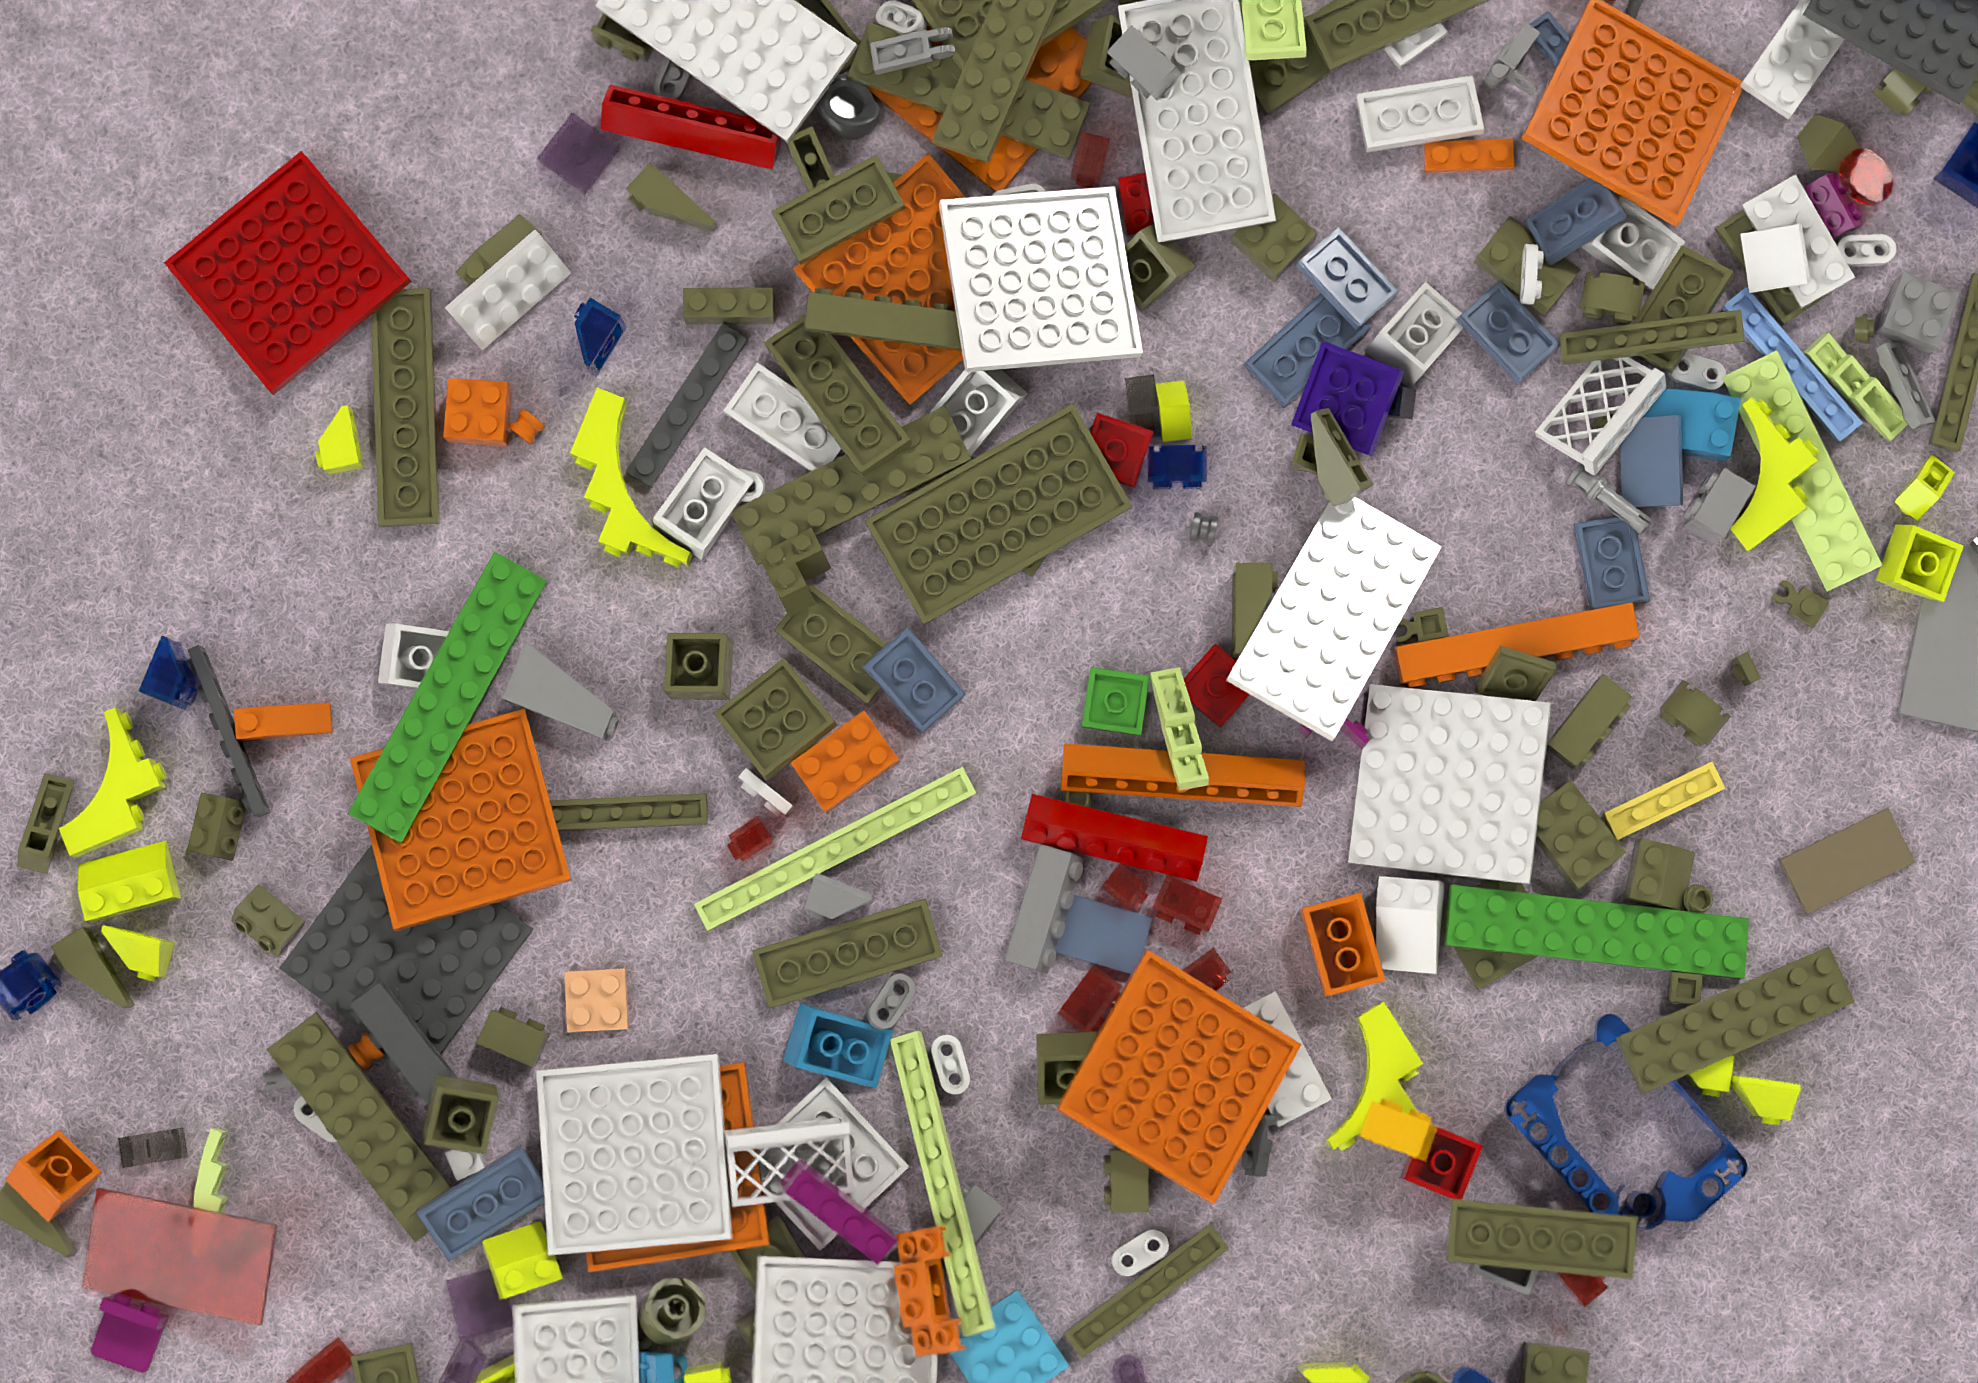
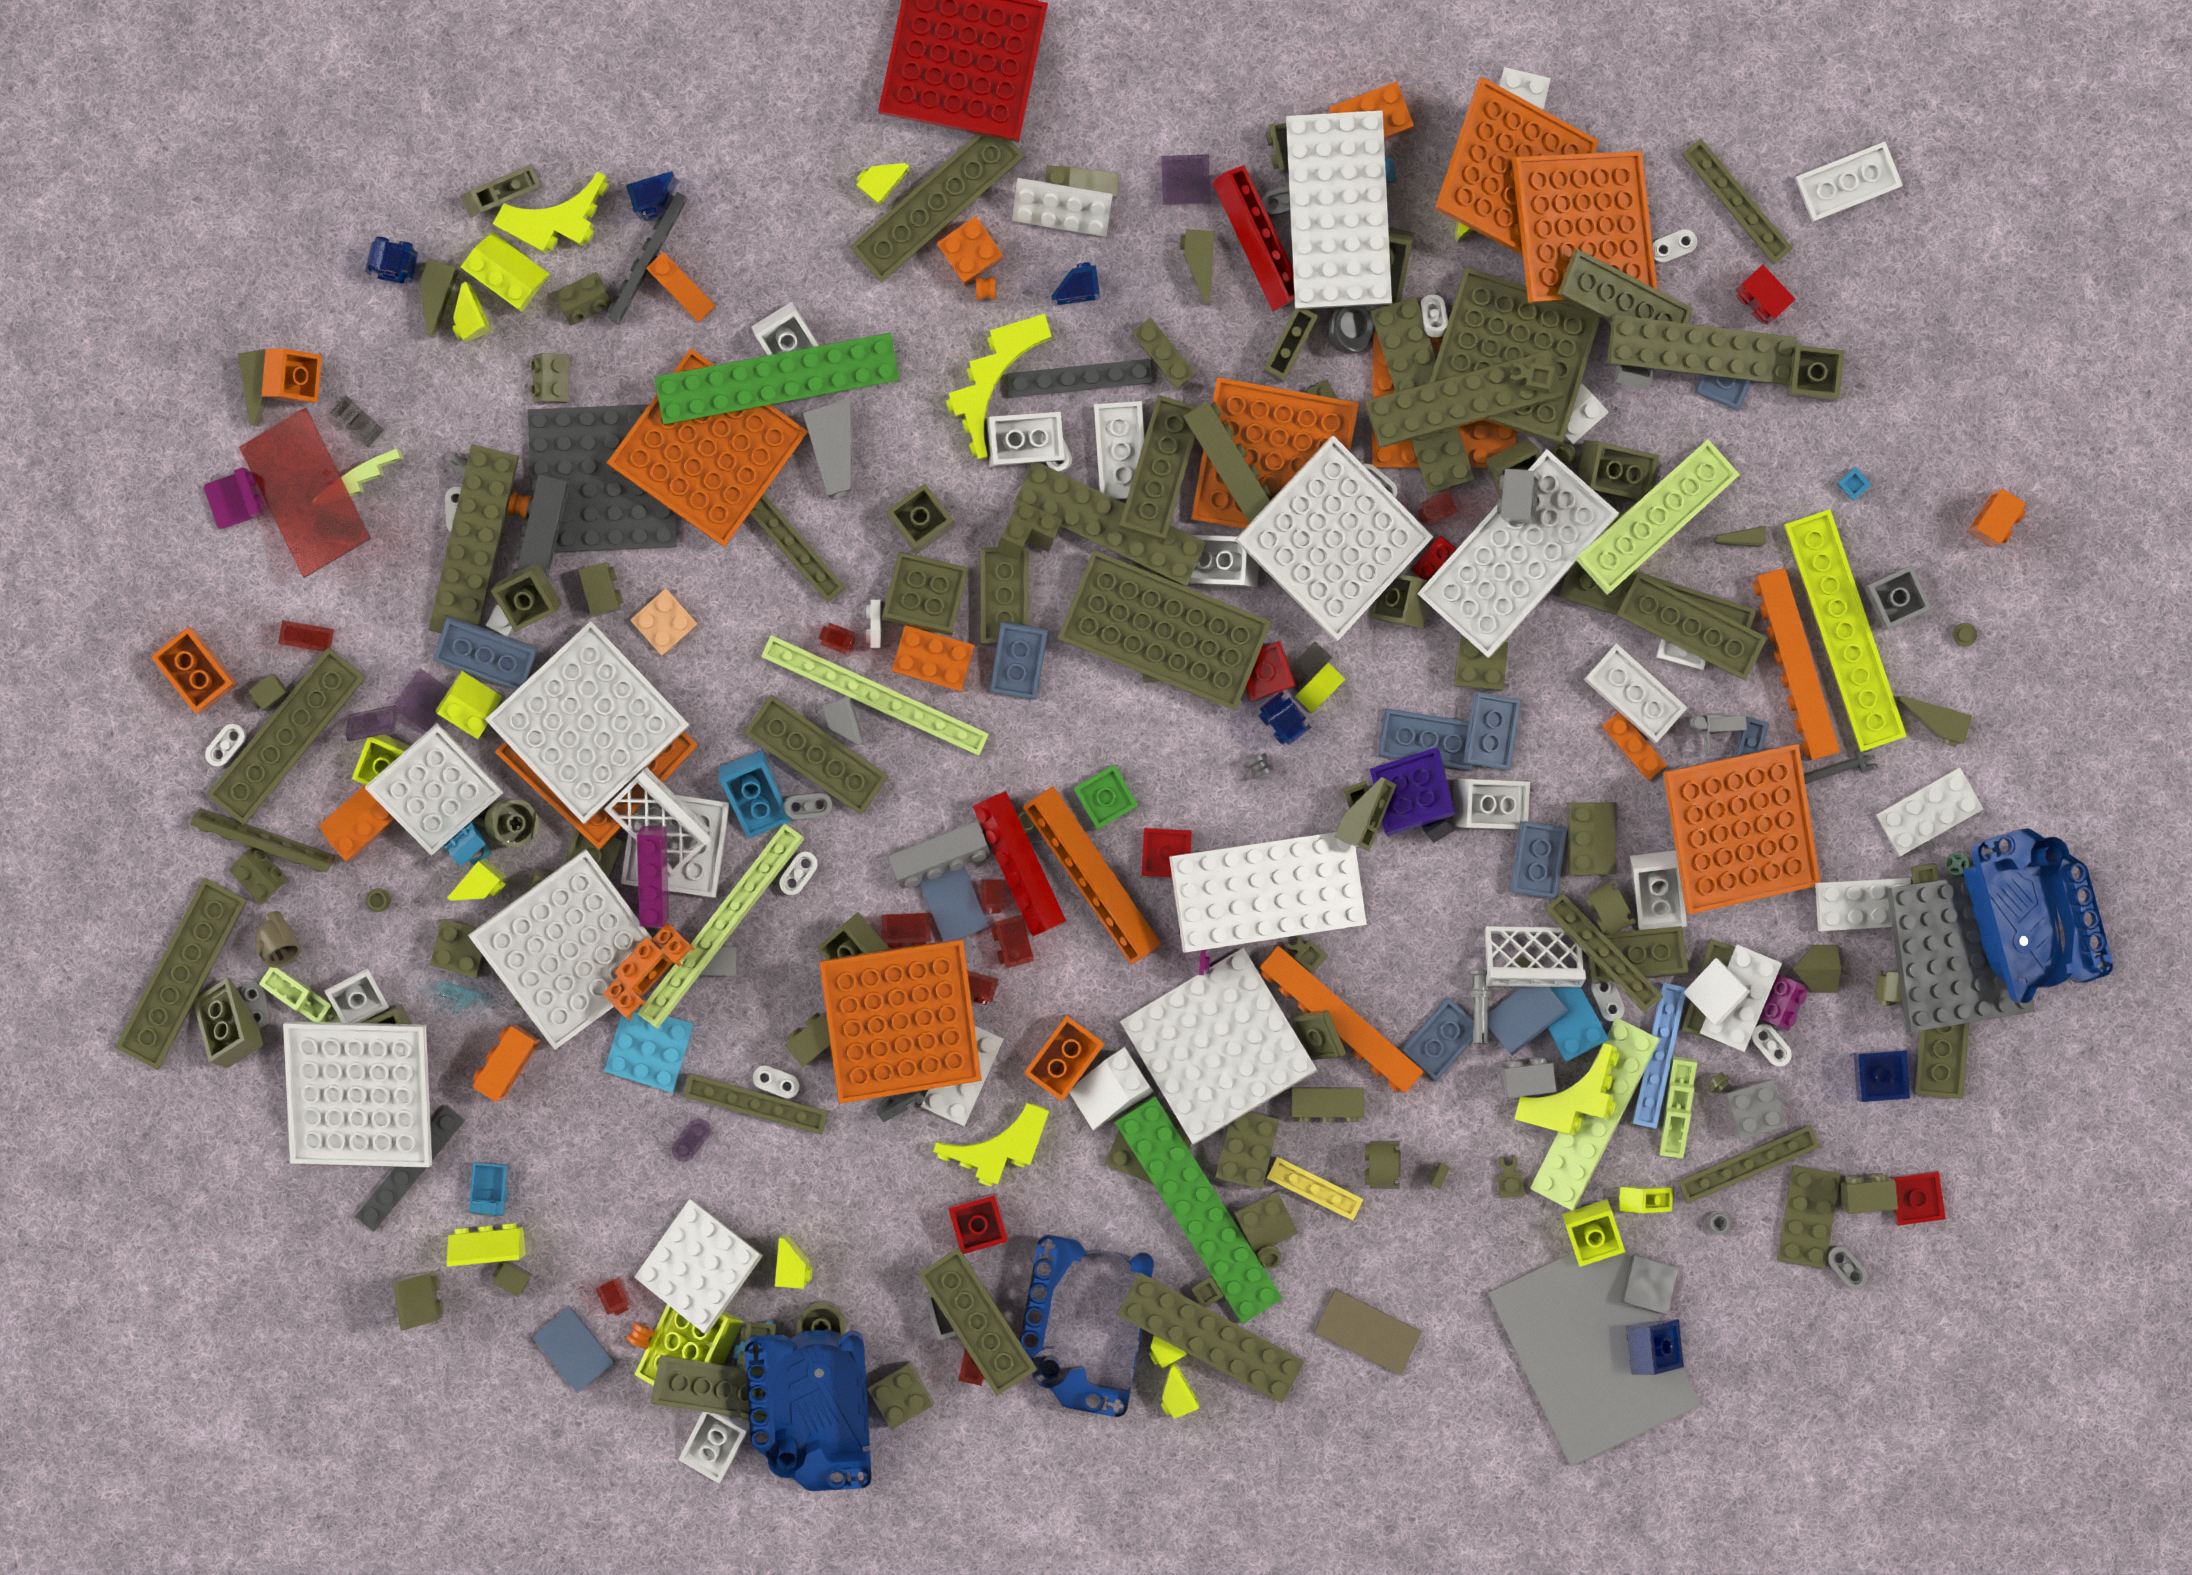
camera: 50 degrees right, 5 degrees up
(838, 209) = (1276, 376): olive plate -> none
(910, 50) = (1414, 338): light grey hinge -> none
(1179, 728) = (1118, 850): yellowish green slope -> none
(1250, 593) = (1238, 829): olive slope -> none
(1399, 1131) = (973, 1181): yellow brick -> none
(1531, 261) = (1589, 840): white plate -> none
(1575, 220) = (1641, 846): sand blue tile -> none
(1866, 176) = (1819, 1009): clear red tile -> none
(1905, 385) = (1702, 1137): light grey plate -> none

